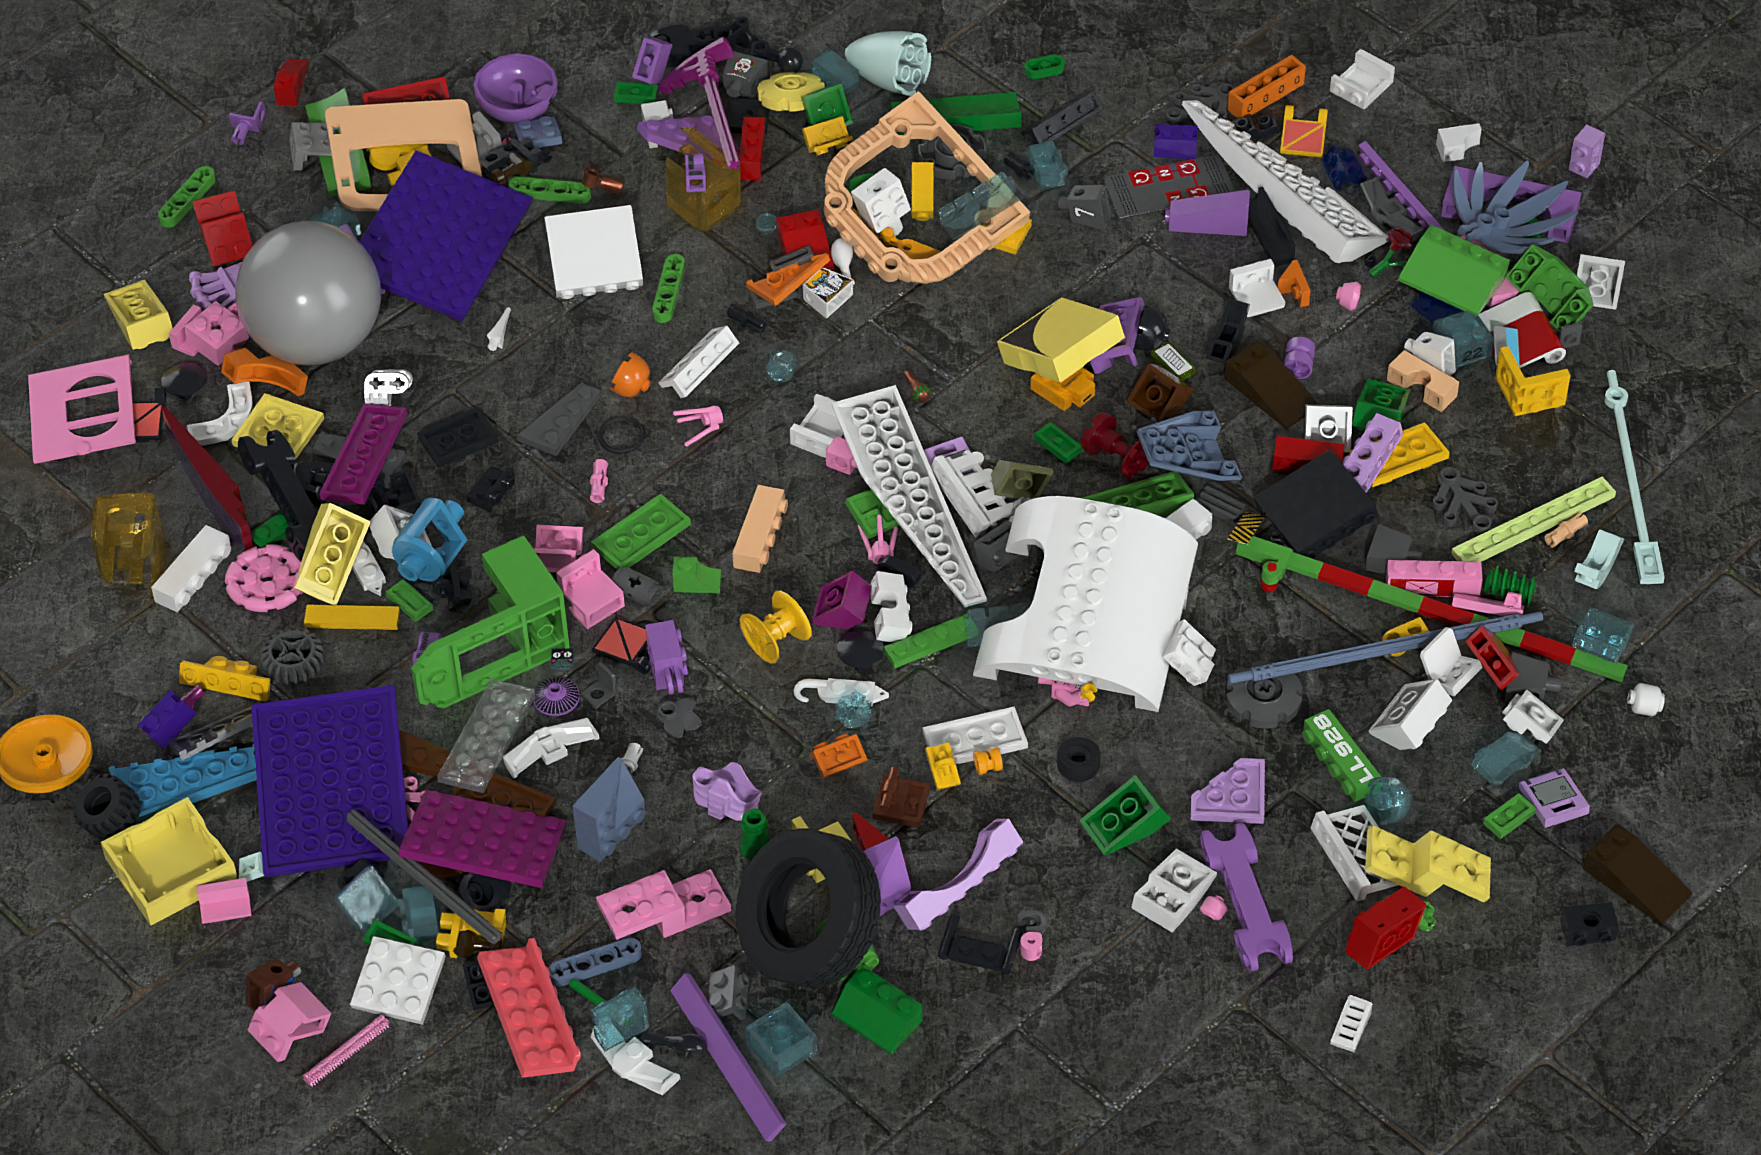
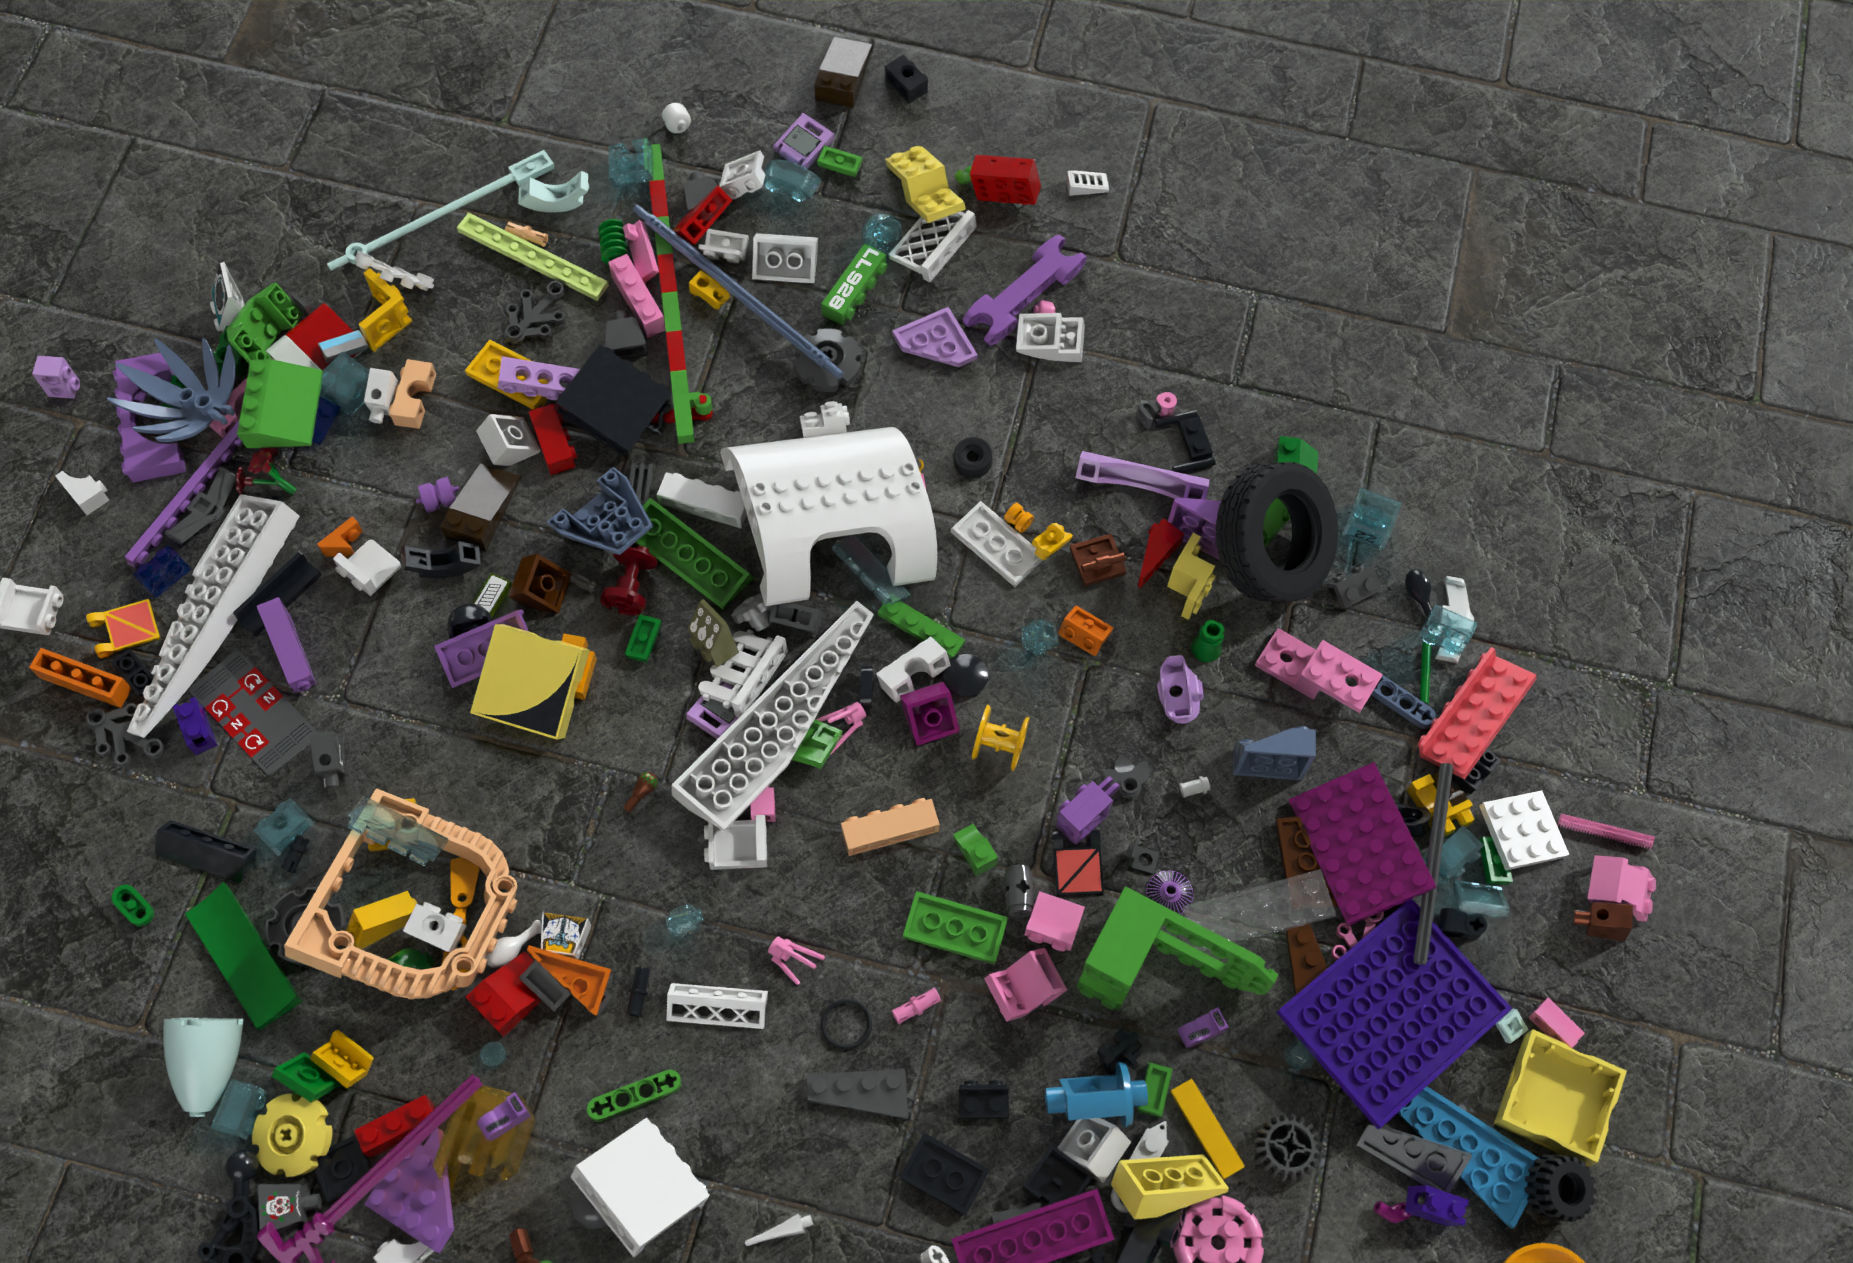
camera: 125 degrees left, 15 degrees up
(226, 677) = (1344, 1195): yellow bracket -> none
(548, 744) = (1228, 859): white plate -> none
(631, 377) = (780, 1049): orange cylinder -> none
(728, 1057) = (1406, 553): medium lavender tile -> none
(833, 689) = (1017, 666): white plate -> none
(1125, 817) = (1008, 397): green slope -> none
(1246, 527) = (667, 440): sticker -> none
(1349, 295) = (335, 490): bright pink cone -> none
(1381, 399) = (459, 410): green slope -> none
(1562, 404) = (388, 273): none -> white plant

